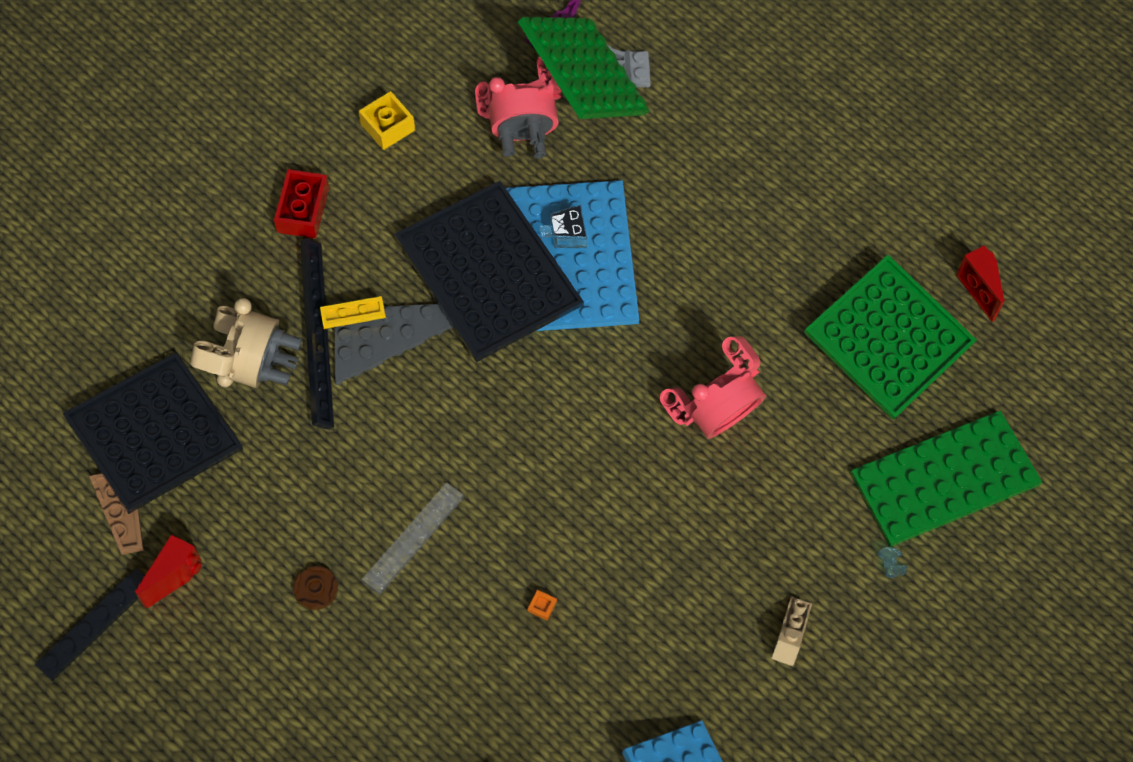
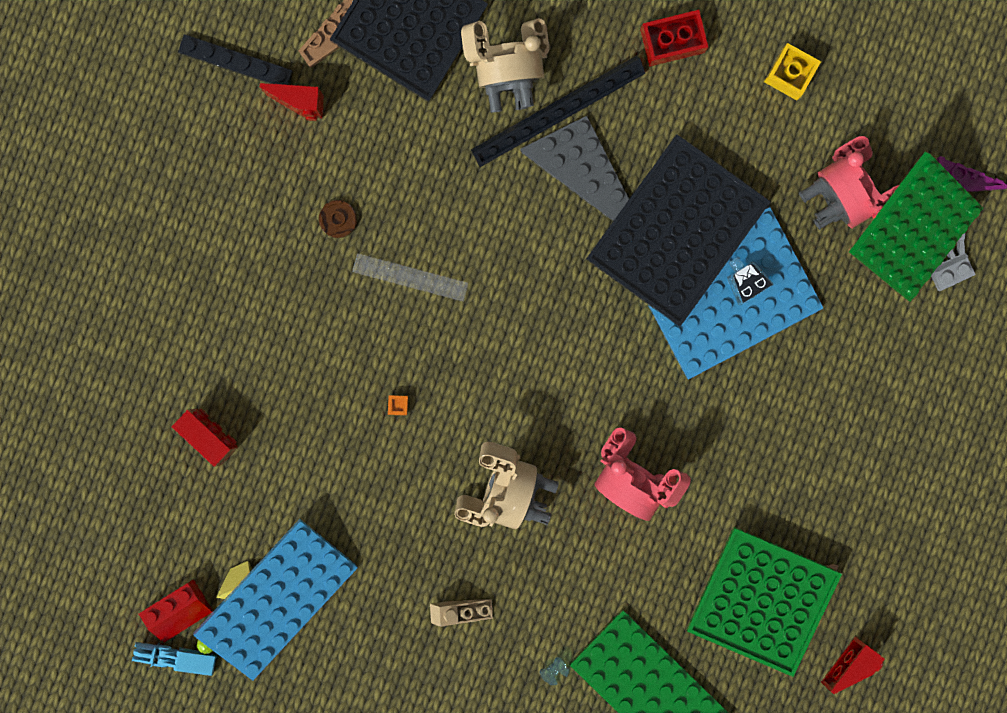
camera: 70 degrees right, 25 degrees up
(352, 312) = (586, 134): yellow plate -> none
(683, 520) = (508, 492): none -> tan piece

